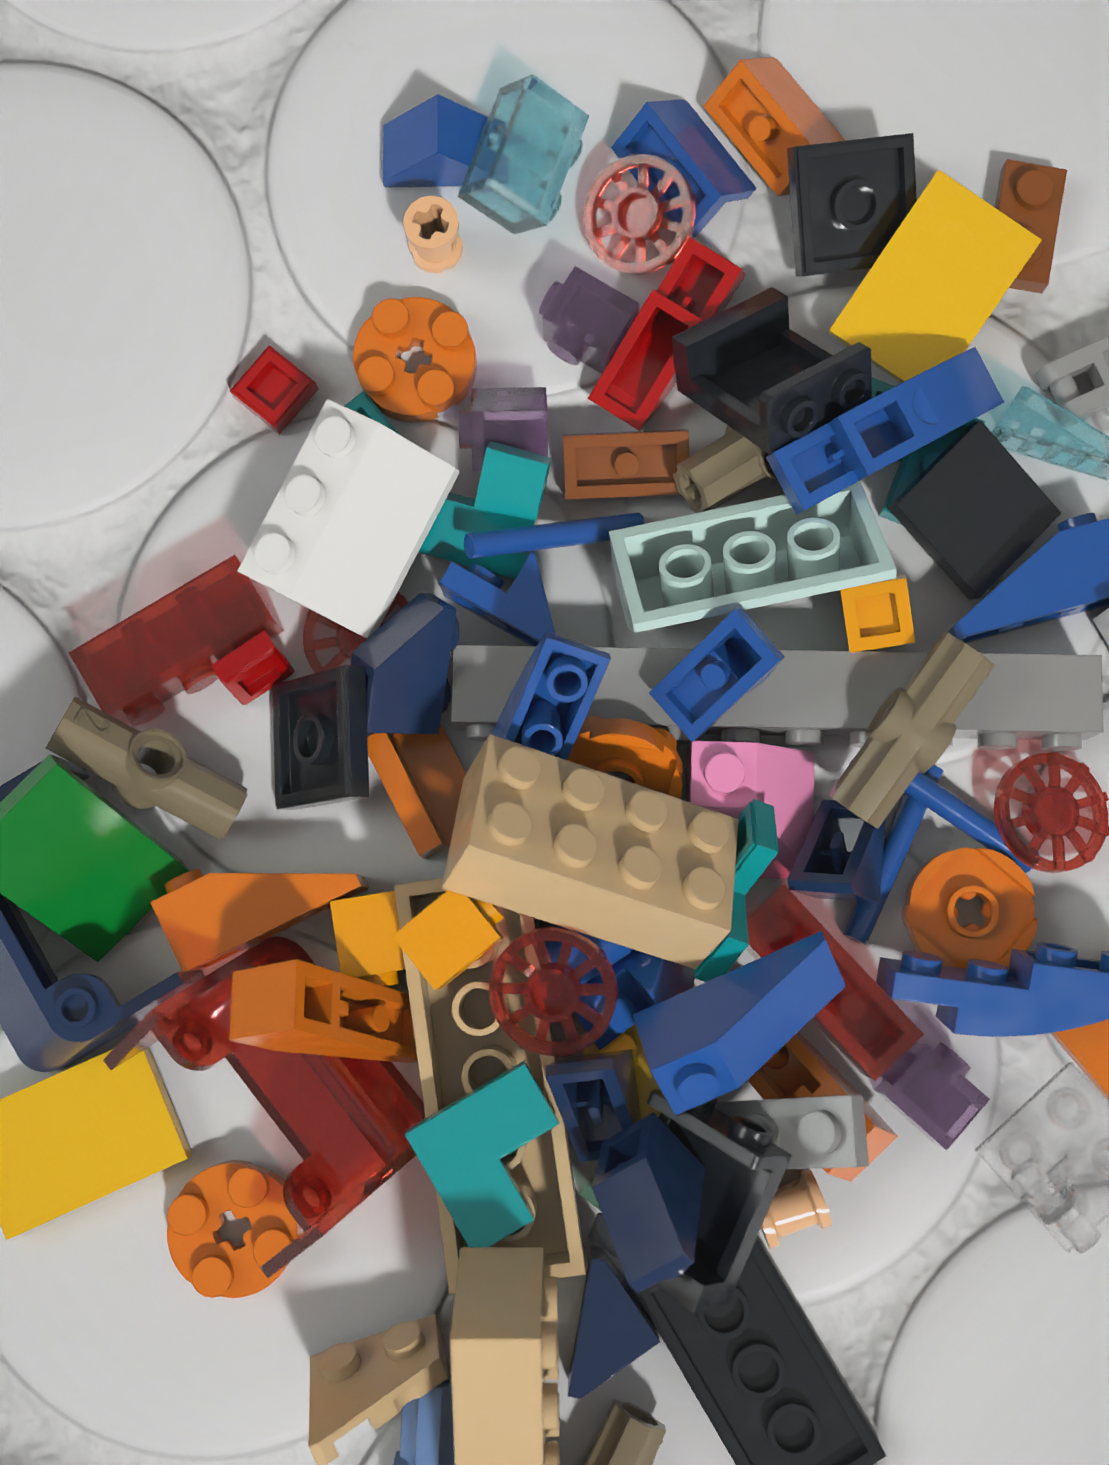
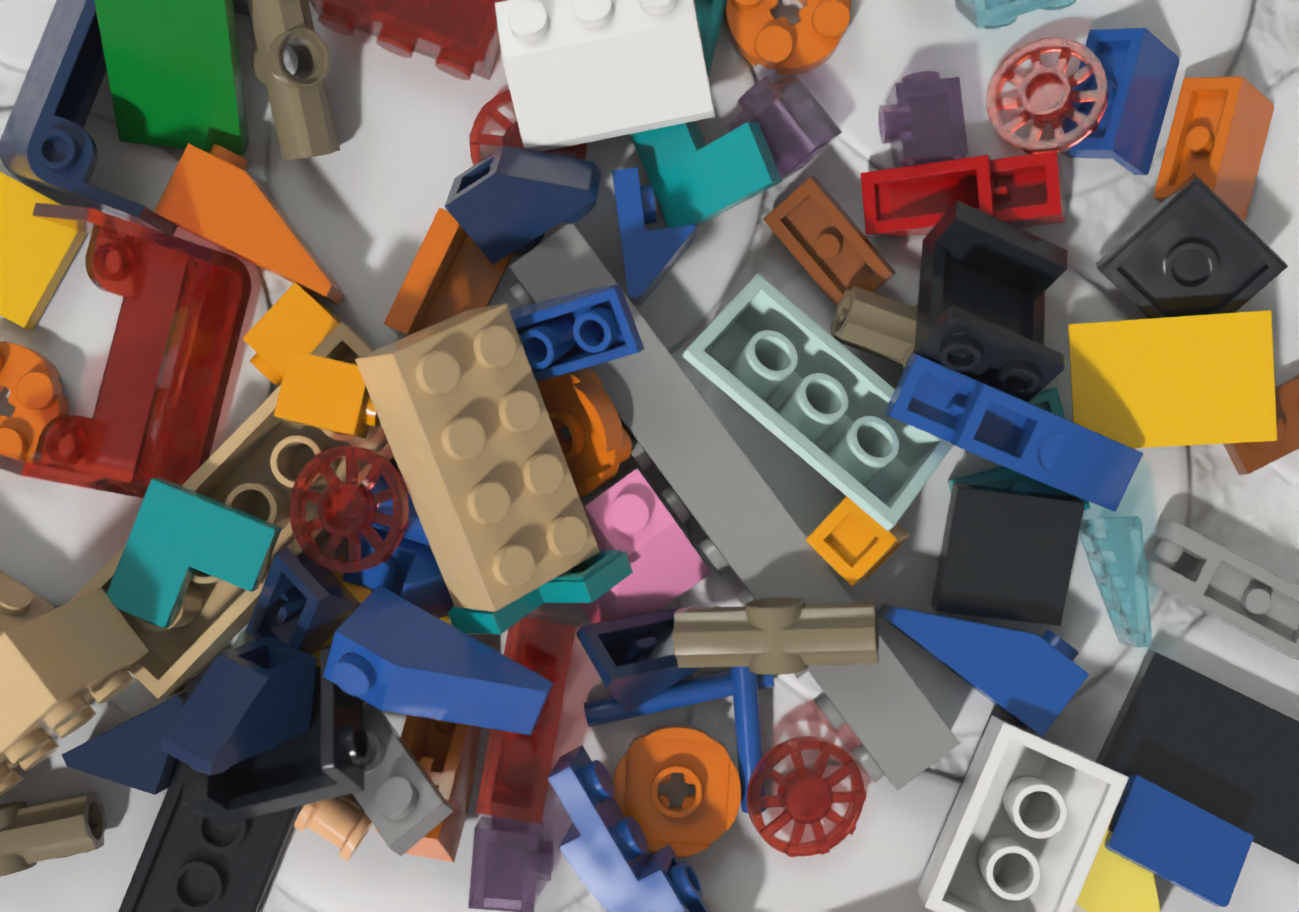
camera: 50 degrees right, 5 degrees up
(253, 668) = (435, 78): red tile -> none
(320, 1013) = (197, 340): orange slope -> none
(321, 738) = (417, 175): black tile -> none
(546, 535) = (719, 228): blue bar -> none
(717, 674) = (699, 446): blue slope -> none

